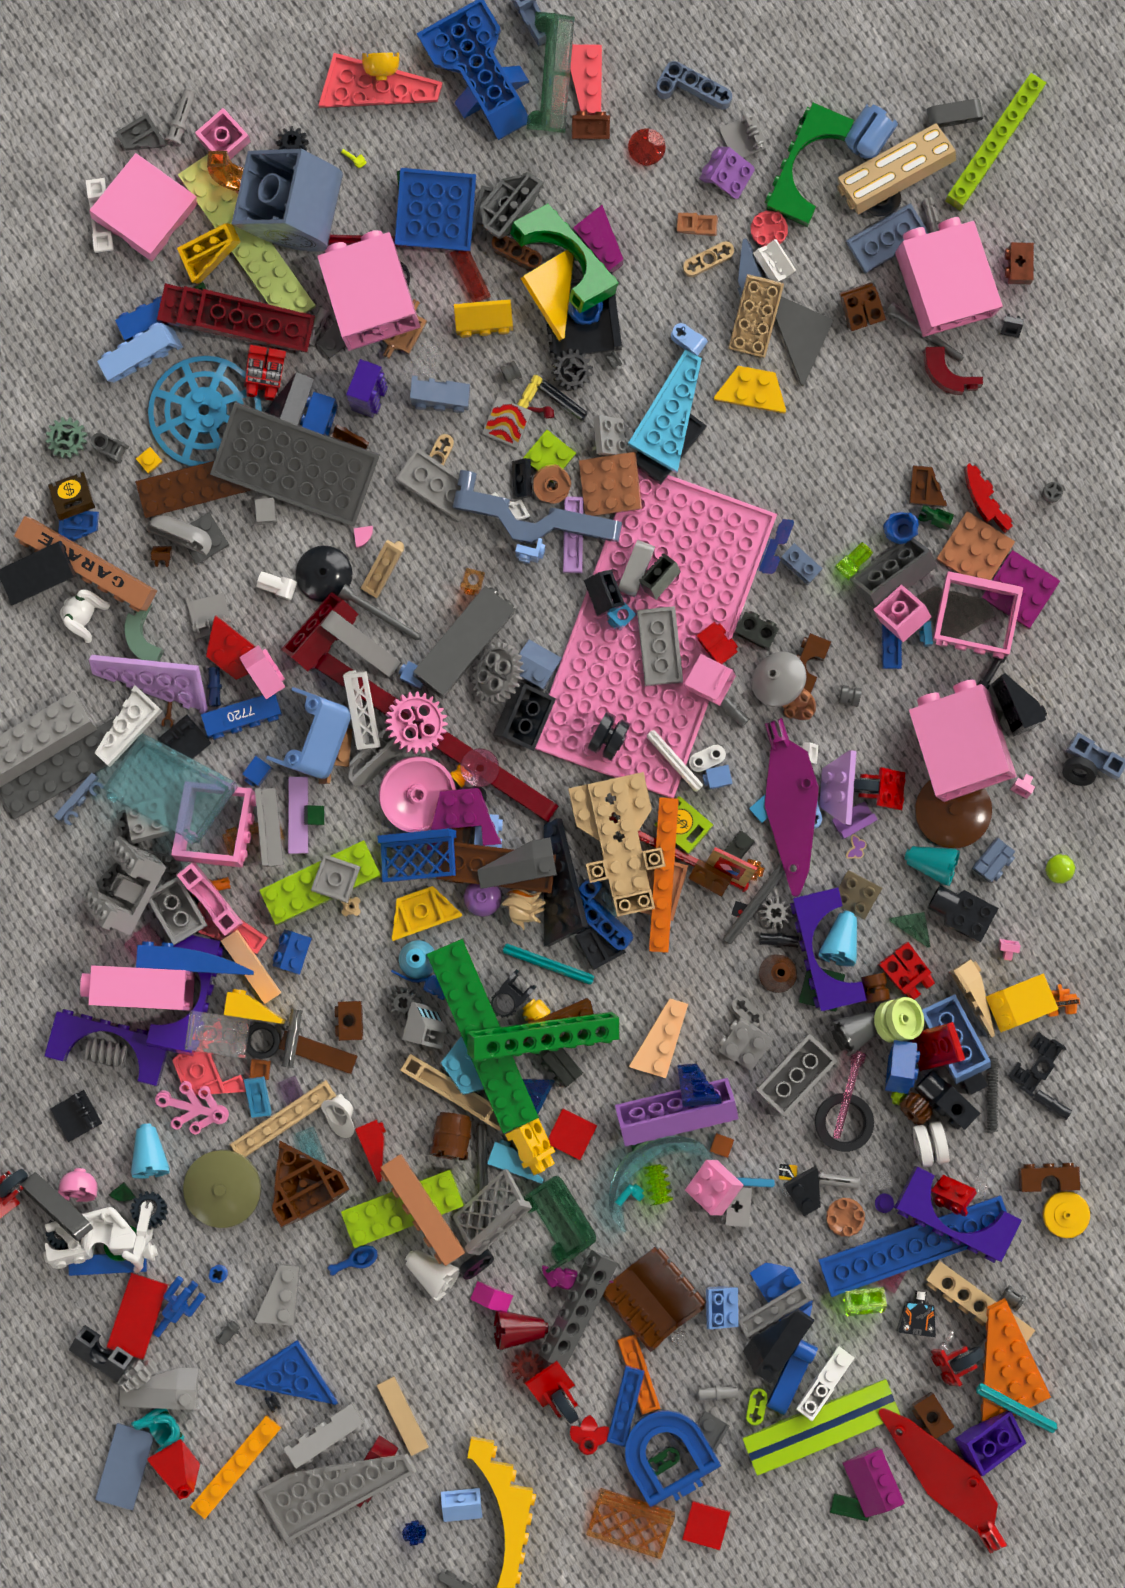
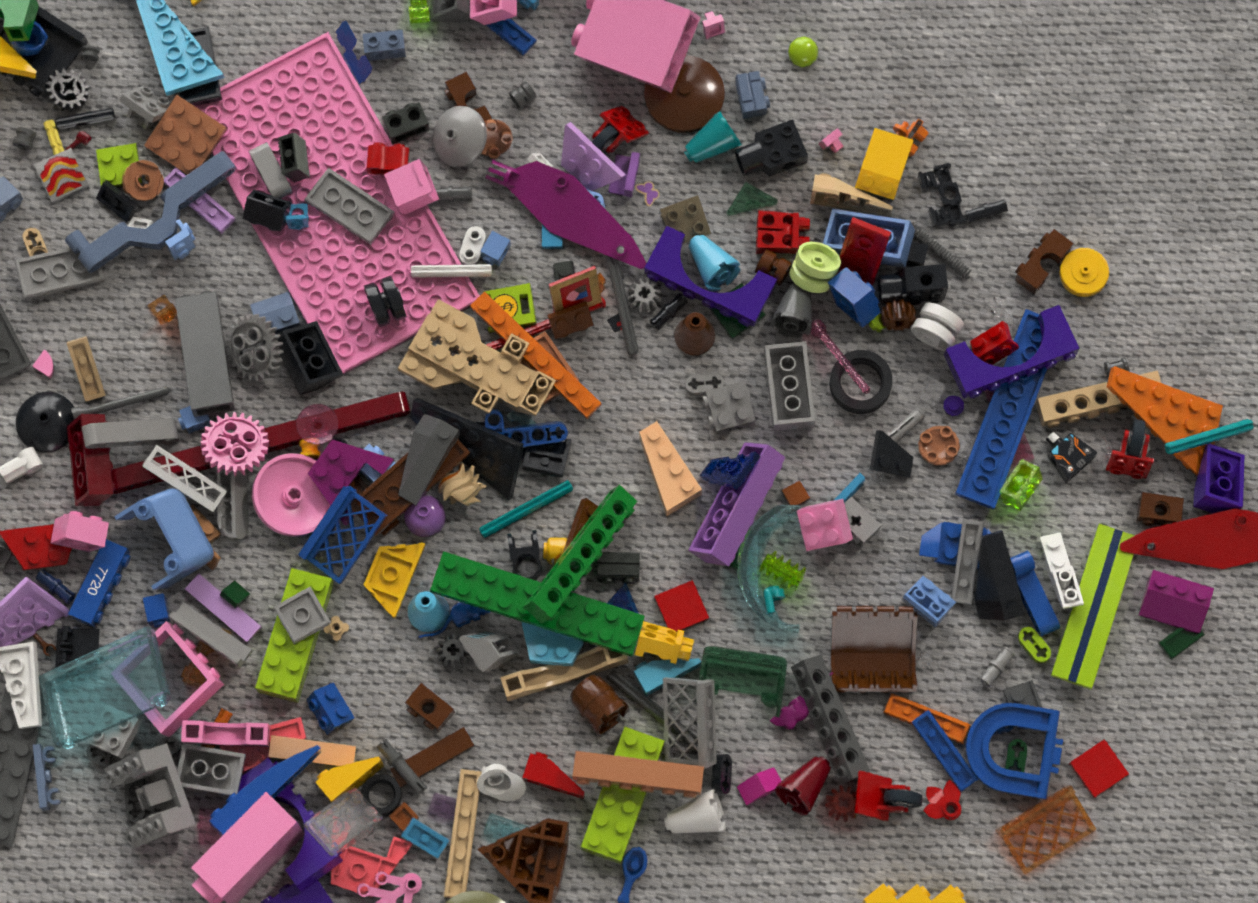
camera: 50 degrees left, 10 degrees down
(787, 1172) = (862, 461): sticker -> none

